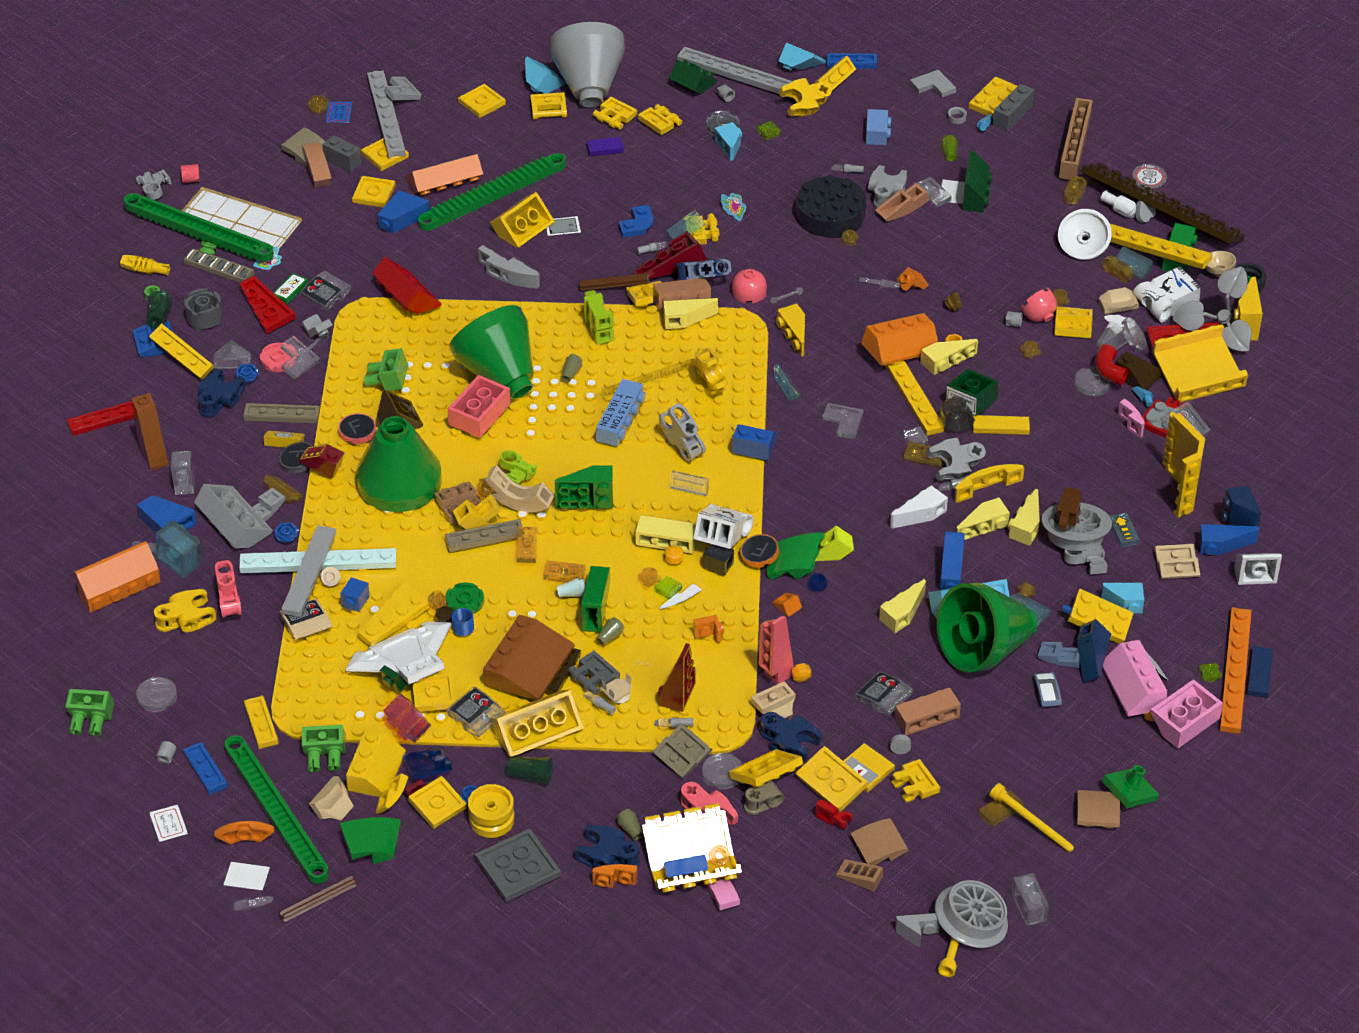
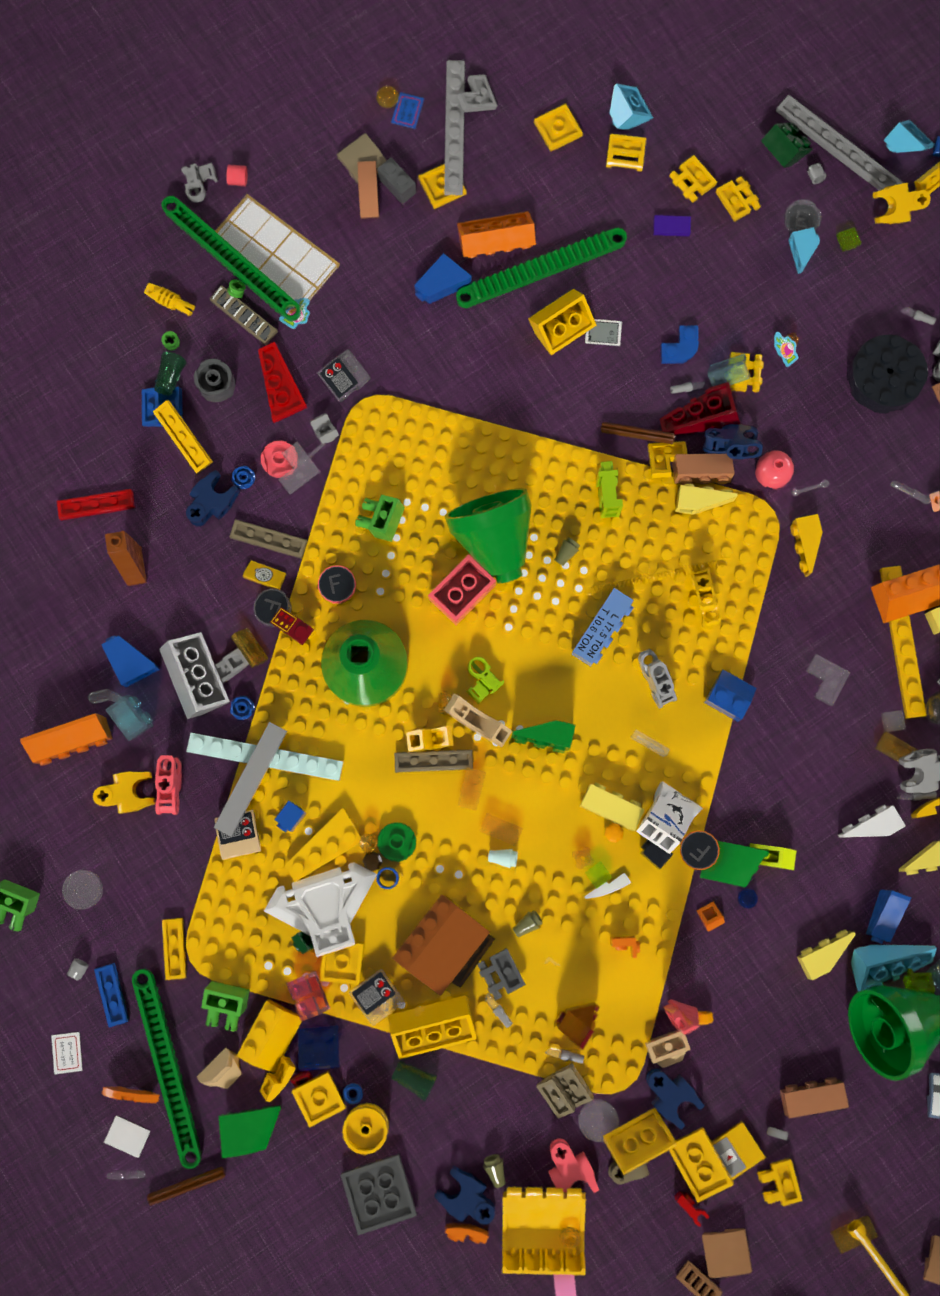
camera: 15 degrees right, 35 degrees up
(183, 472) = (153, 612): clear brick -> none
(231, 356) = (233, 451): clear slope -> none
(290, 287) = (309, 364): tile -> none
(330, 576) = (272, 783): tan plate -> none
(373, 191) = (420, 240): yellow tile -> none
(395, 405) = (380, 578): dark brown slope -> none
(404, 287) = (423, 396): red slope -> none
(452, 497) = (417, 710): medium nougat slope -> none
(509, 271) = (537, 394): light grey slope -> none
(588, 59) = (679, 110): light grey cone -> none
(595, 599) = (524, 878): green slope -> none
(618, 689) = (518, 1004): tan piece -> none
(685, 866) = (534, 1245): slope -> none
(785, 383) = (780, 616): clear light blue slope -> none
(849, 237) = (891, 419): clear yellow plate -> none
(884, 692) = (777, 1061): slope -> none

